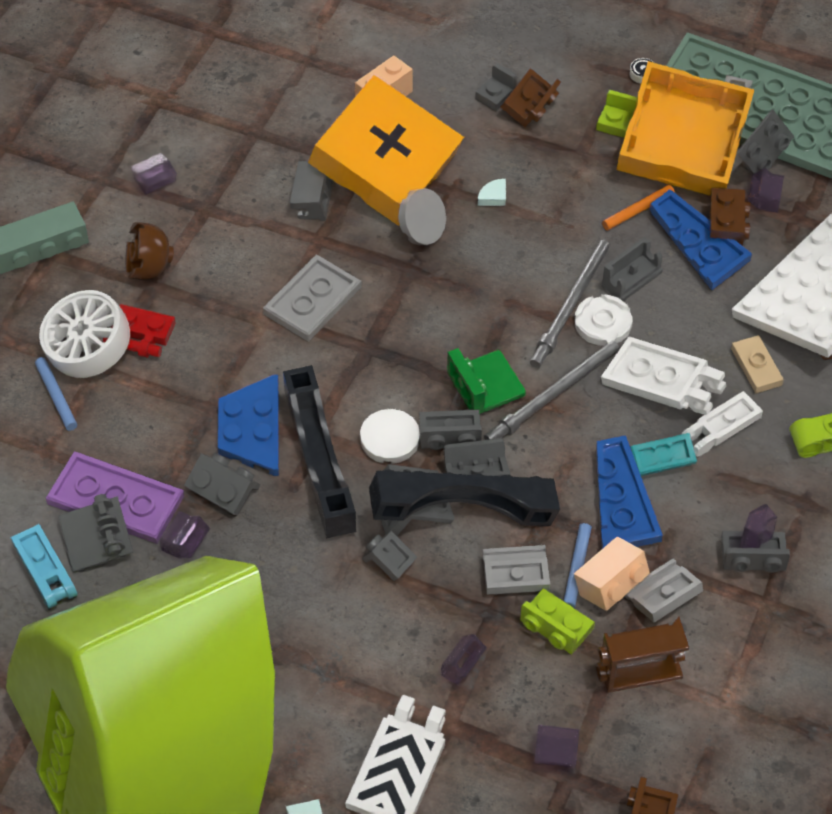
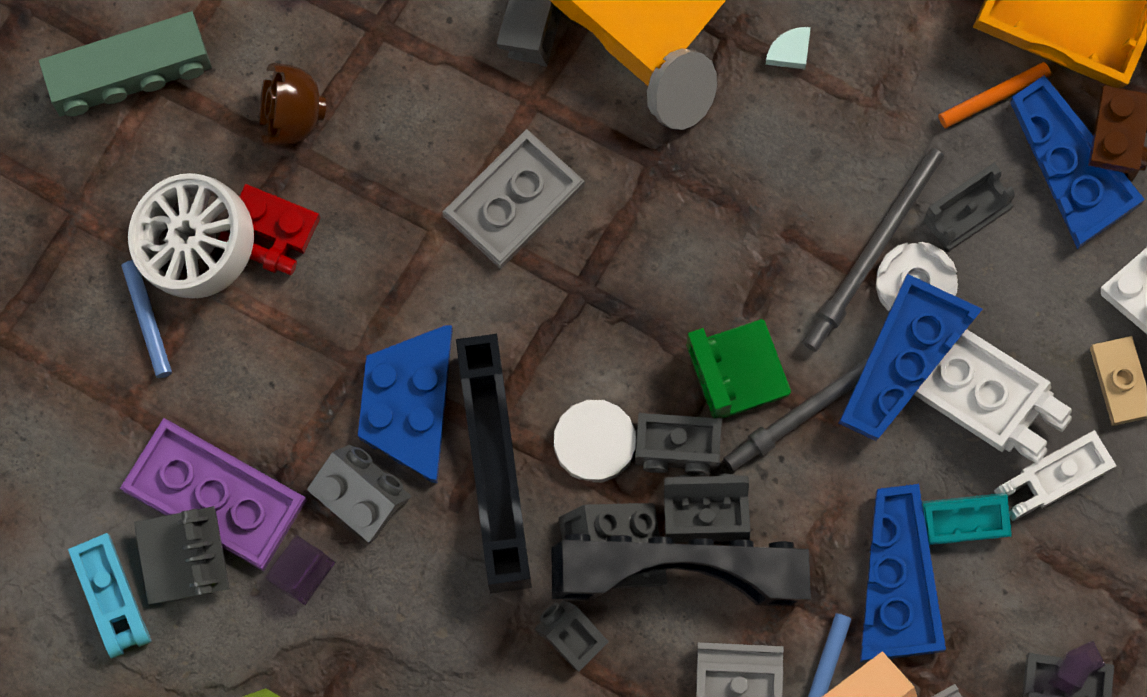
camera: 10 degrees right, 20 degrees up
(604, 353) = (909, 347): none -> blue wing

